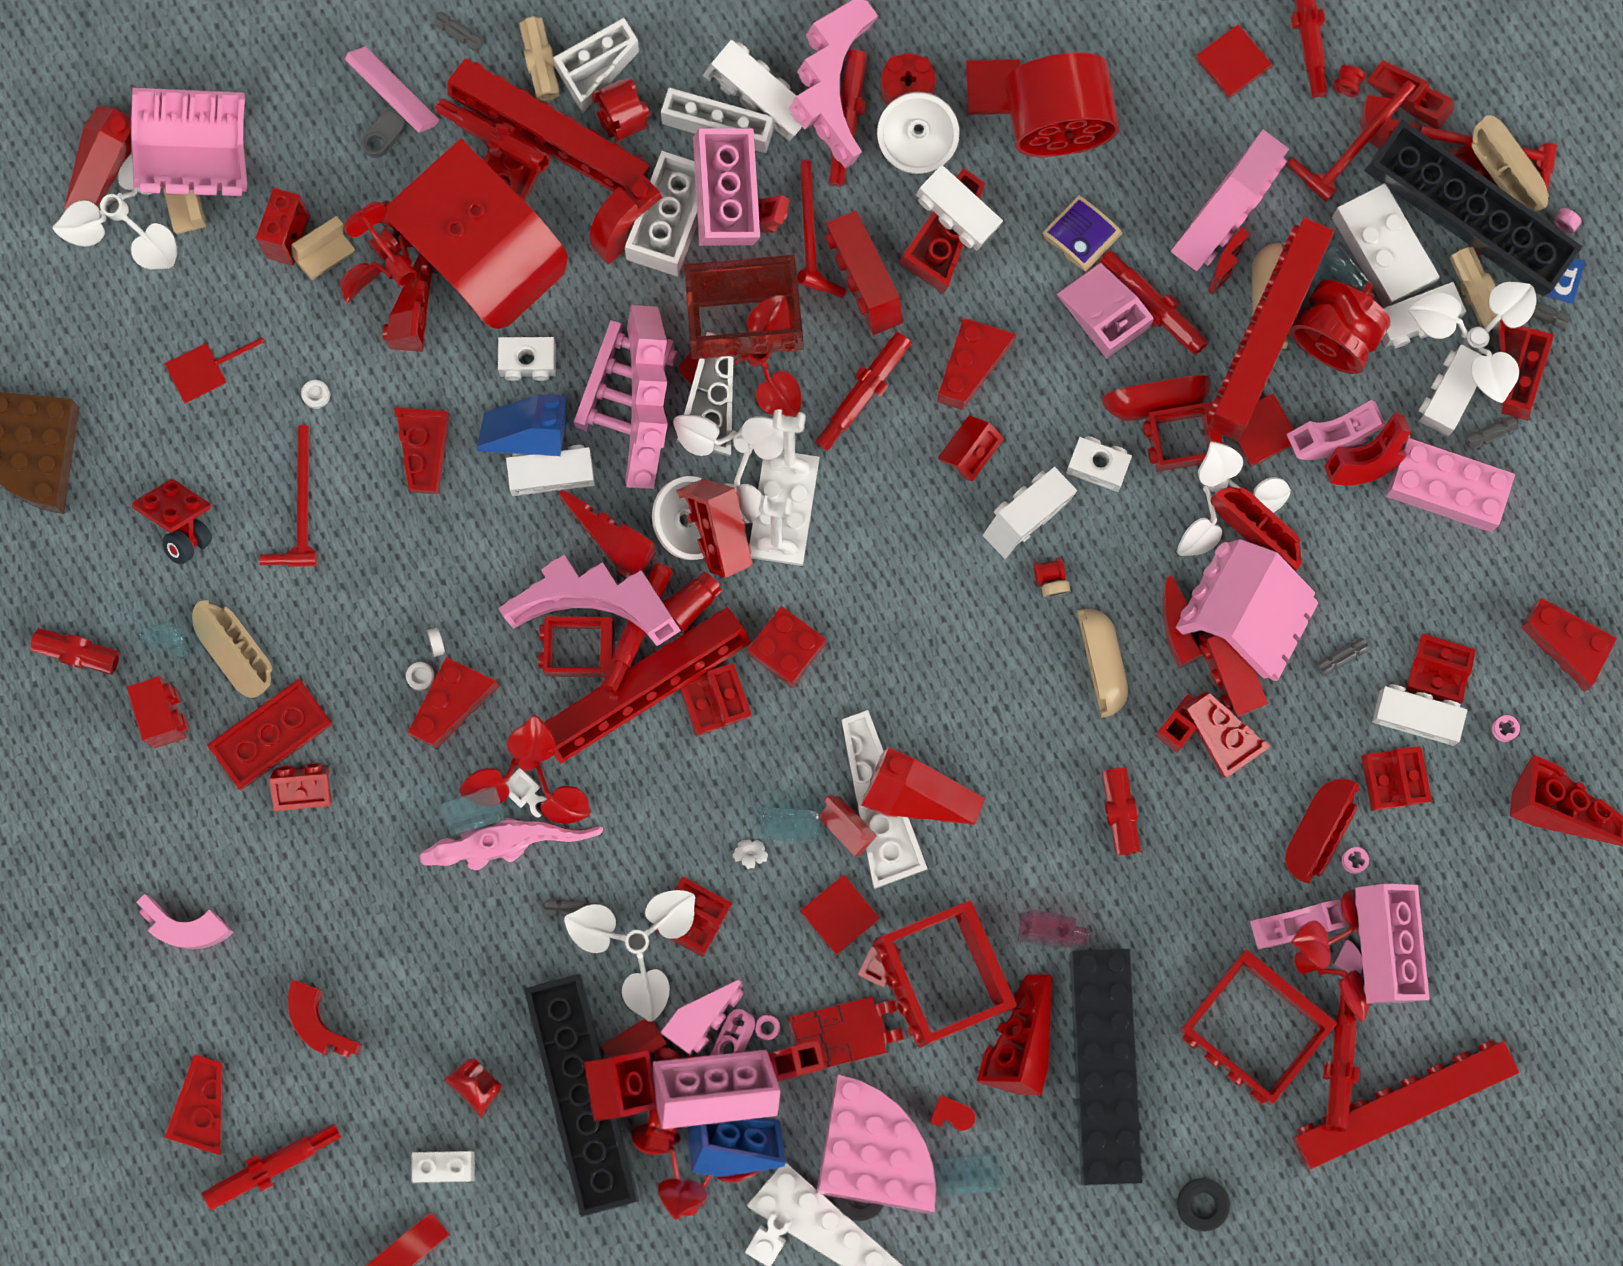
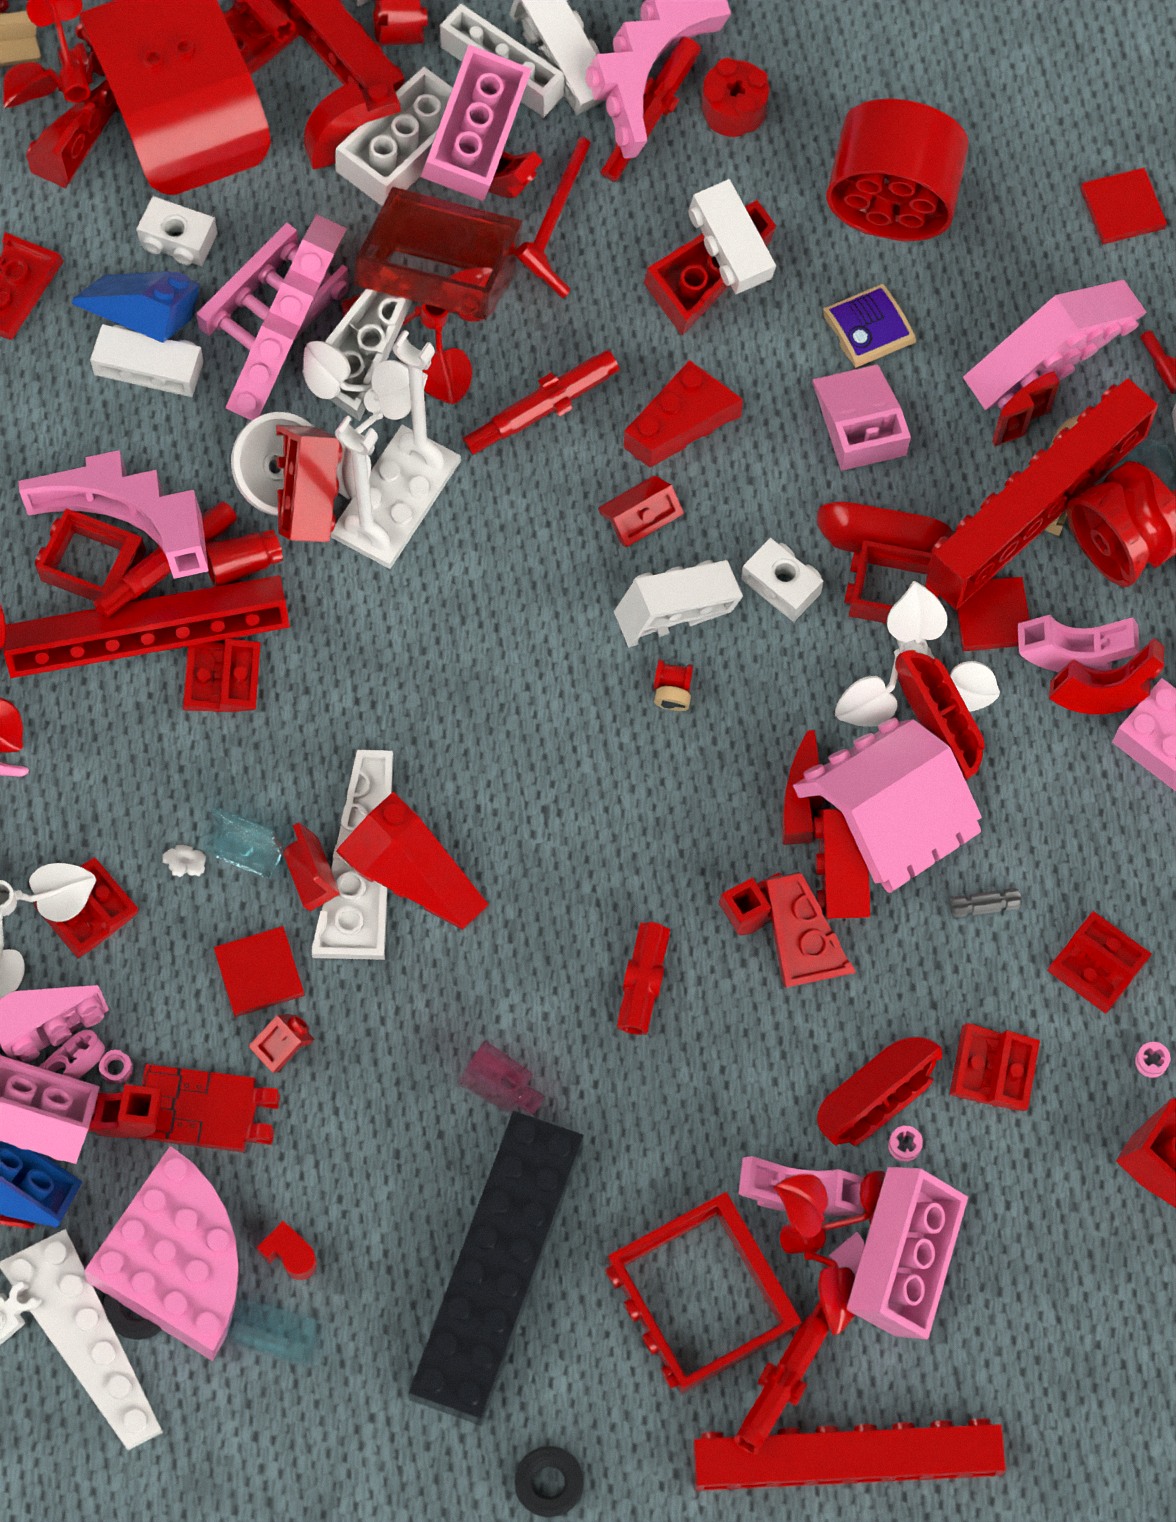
camera: 20 degrees right, 10 degrees down
(621, 545) = (186, 455): red wedge -> none
(786, 647) = (329, 646): red brick -> none
(864, 272) = (597, 277): red wedge -> none
(912, 149) = (702, 141): white dish -> none
(983, 958) = (407, 1097): red window -> none
(987, 86) = (820, 134): red tile -> none
(1022, 1050) = (405, 1212): red wedge -> none
(1104, 660) = (697, 802): tan brick -> none
(1161, 308) = (926, 435): red piece -> none
(1419, 714) = (1051, 1002): white brick -> none

